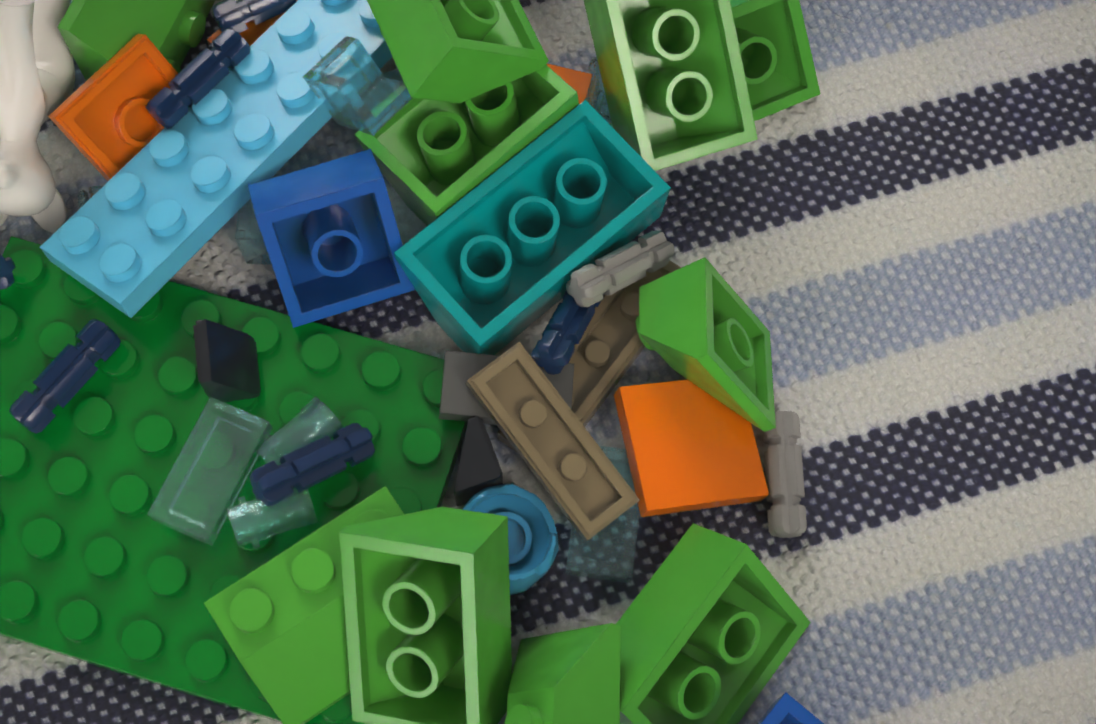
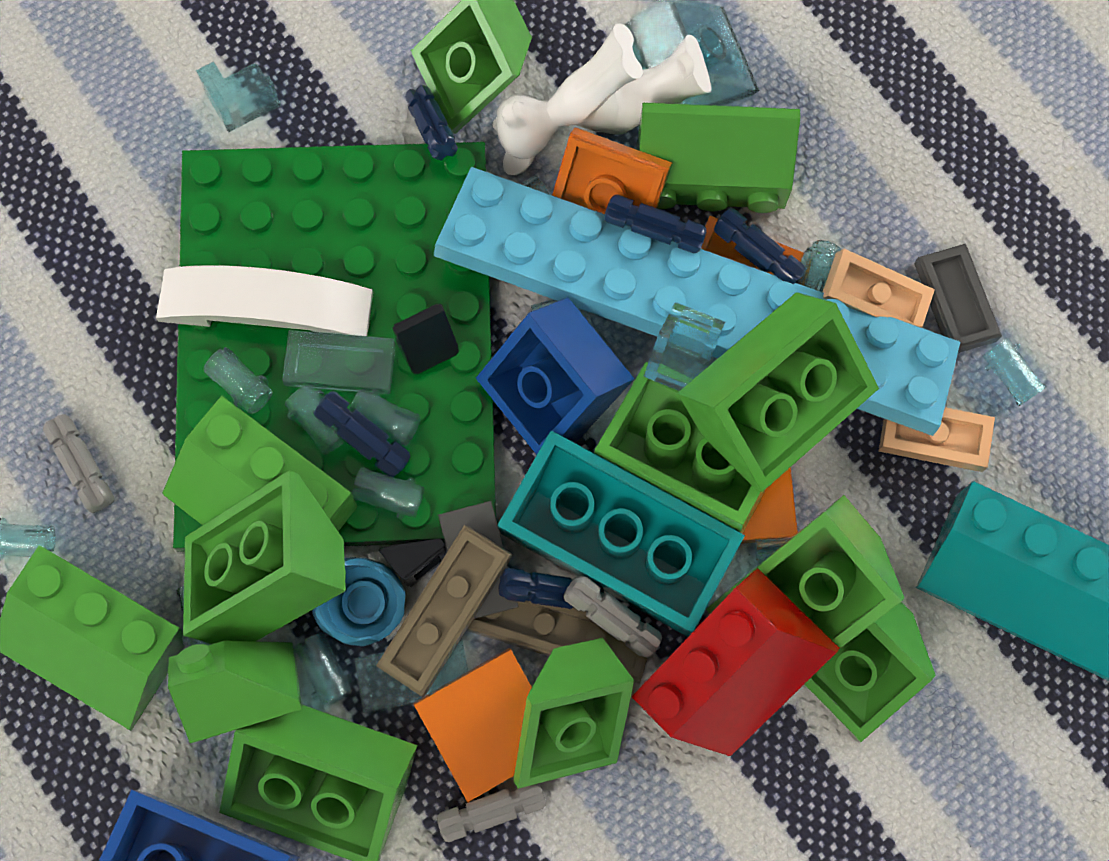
camera: 70 degrees right, 5 degrees up
(65, 376) = (378, 228): dark blue axle -> none
(88, 540) = (263, 298): none -> white slope
(182, 593) = (243, 386): none -> clear light blue pin
(394, 458) = (388, 492): none -> clear light blue pin
(572, 609) = (323, 670): none -> clear light blue pin
(719, 160) = (736, 668): none -> red slope

